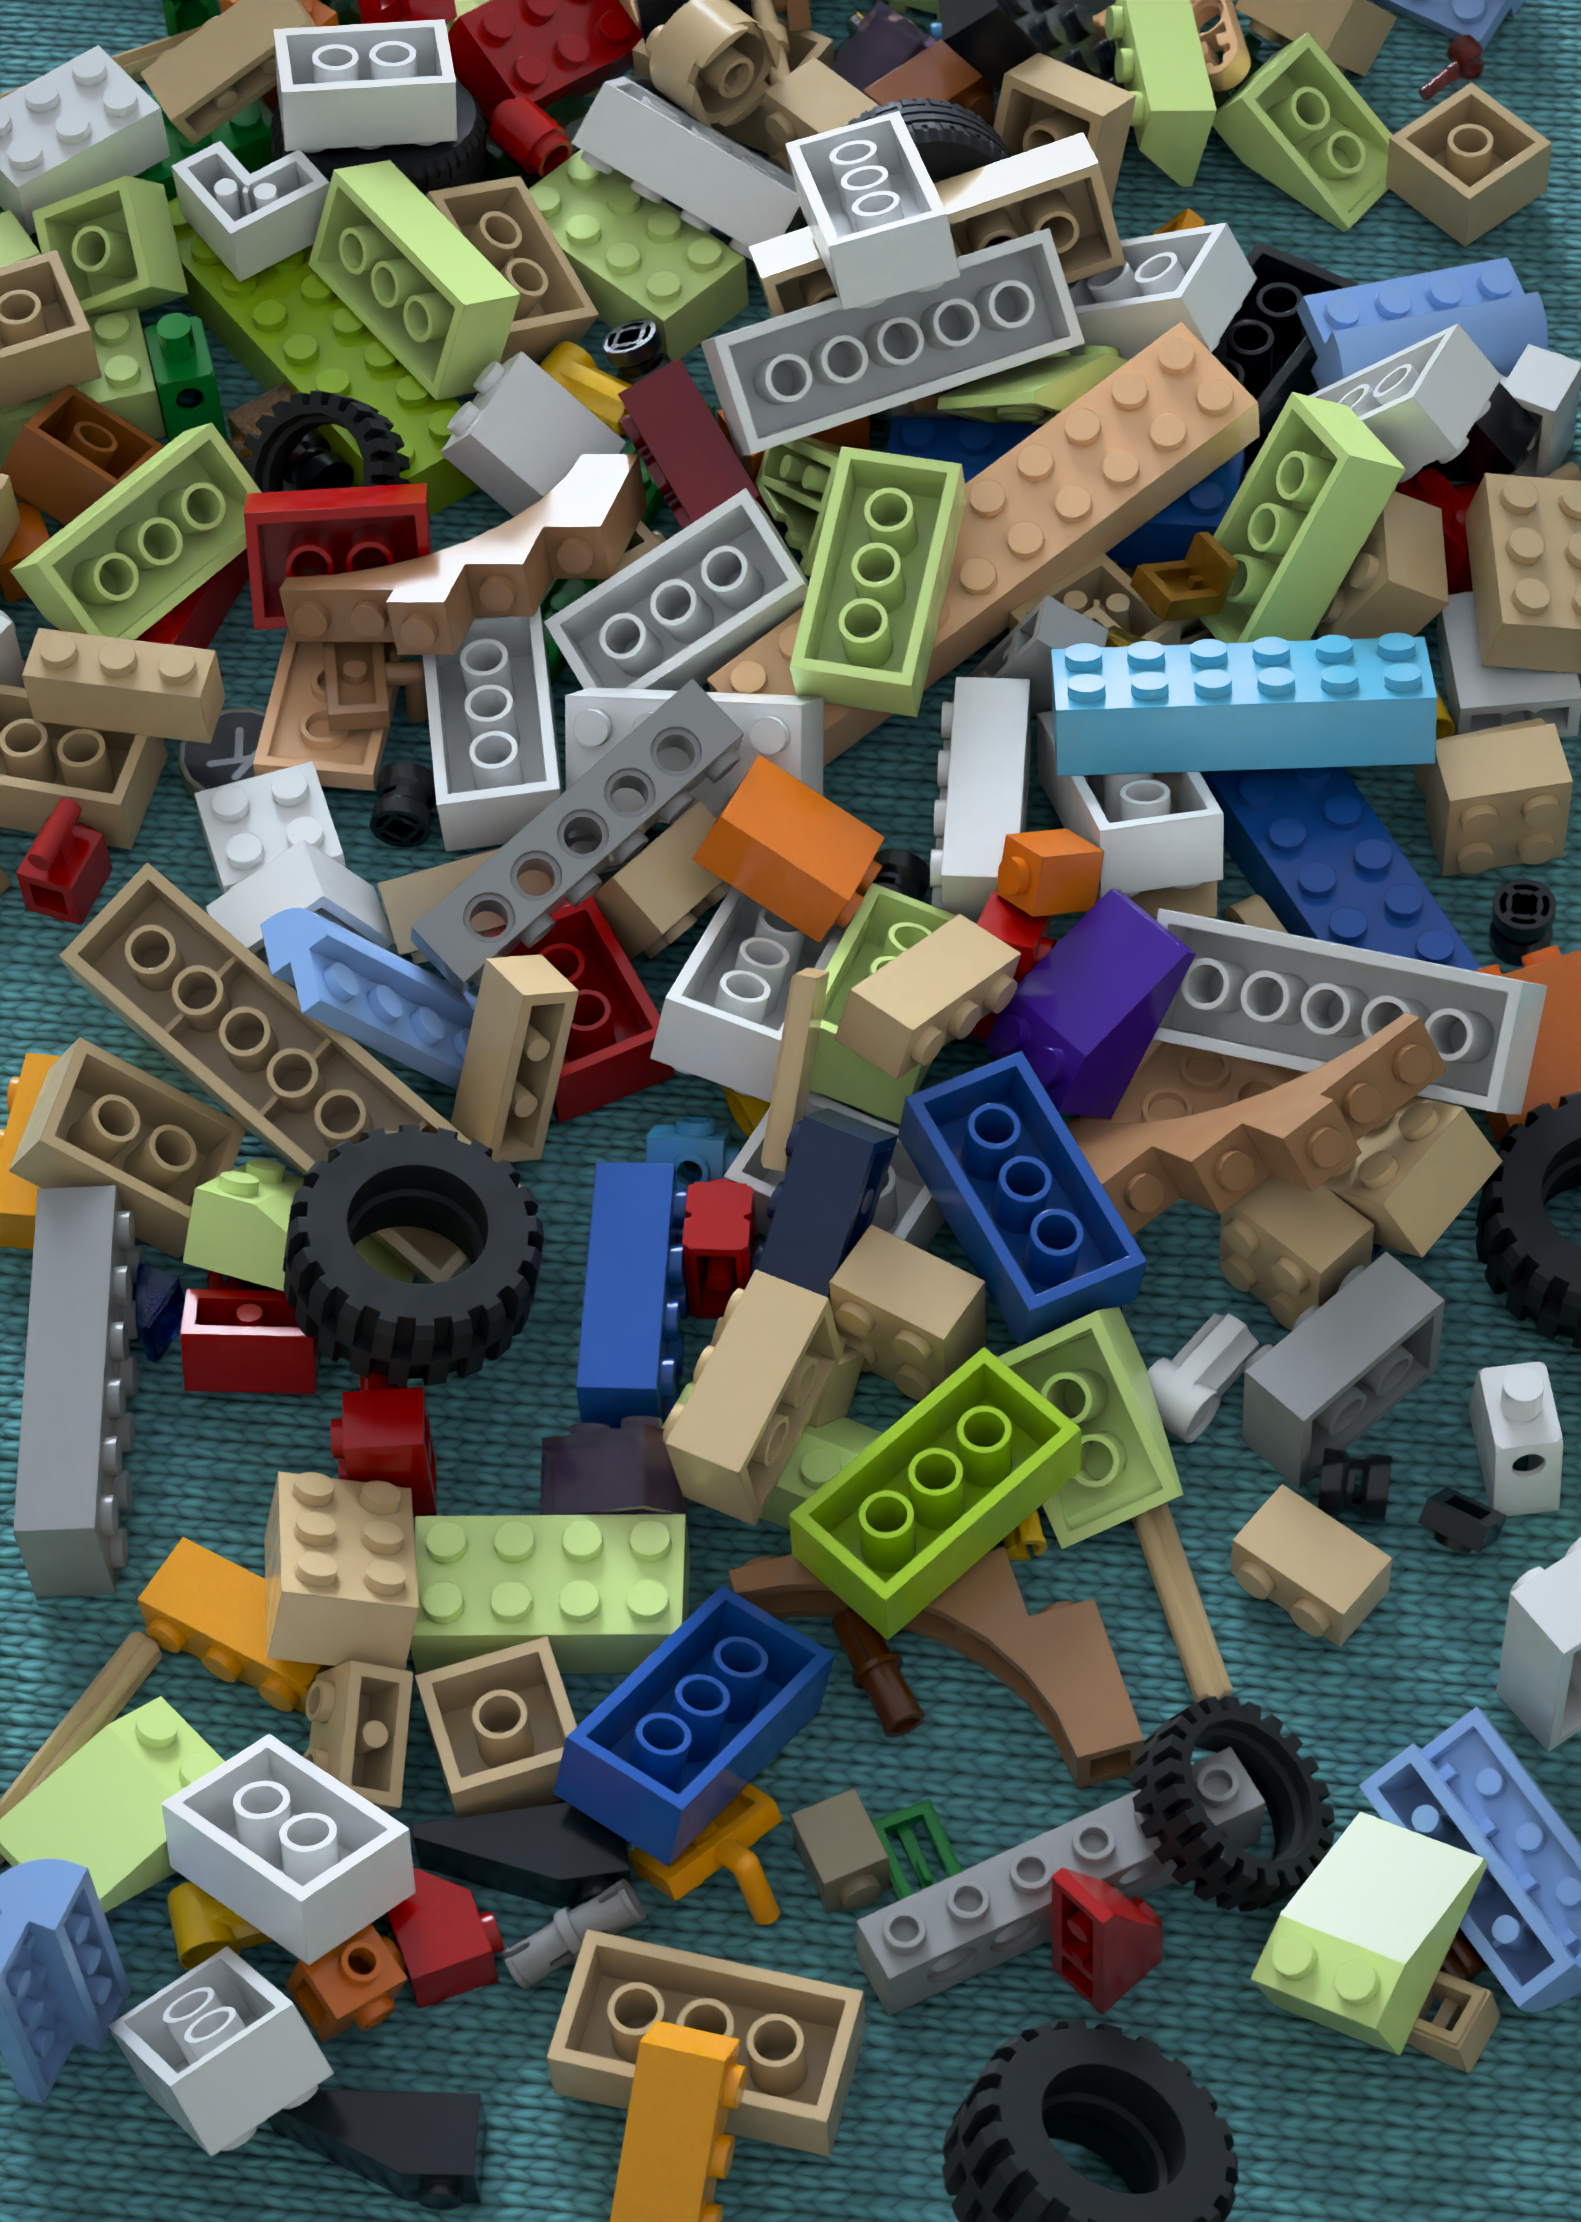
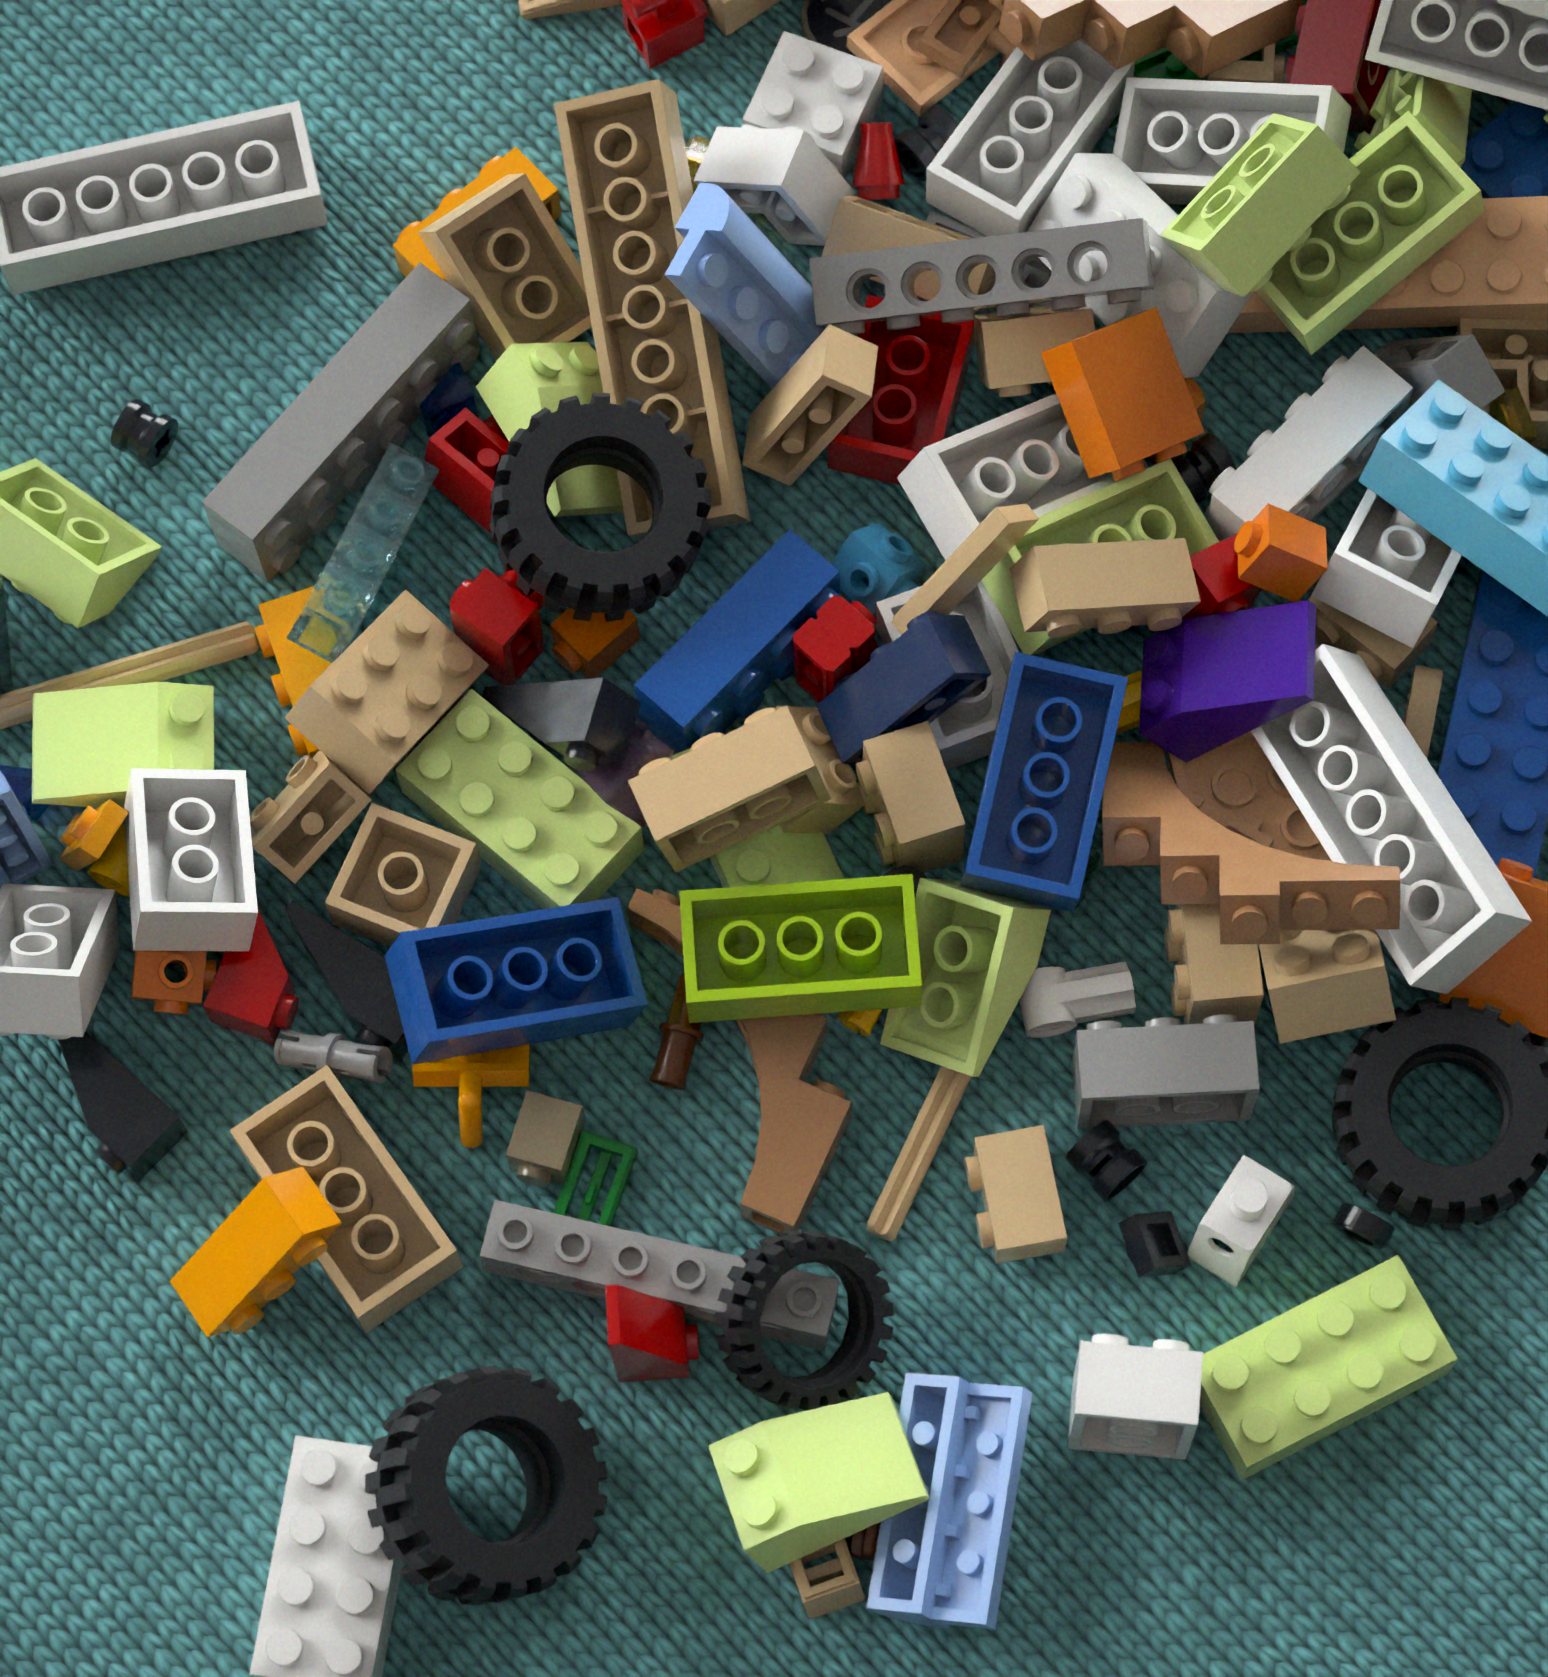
camera: 40 degrees right, 15 degrees up
(159, 1914) = (90, 834): none -> light orange plate
(204, 1479) = (363, 553): none -> clear light blue brick
(374, 846) = (877, 163): none -> red cone
(479, 1409) = (592, 644): none -> orange brick
(541, 1465) = (579, 718): none -> black slope
(782, 600) = (1262, 204): none -> yellowish green slope

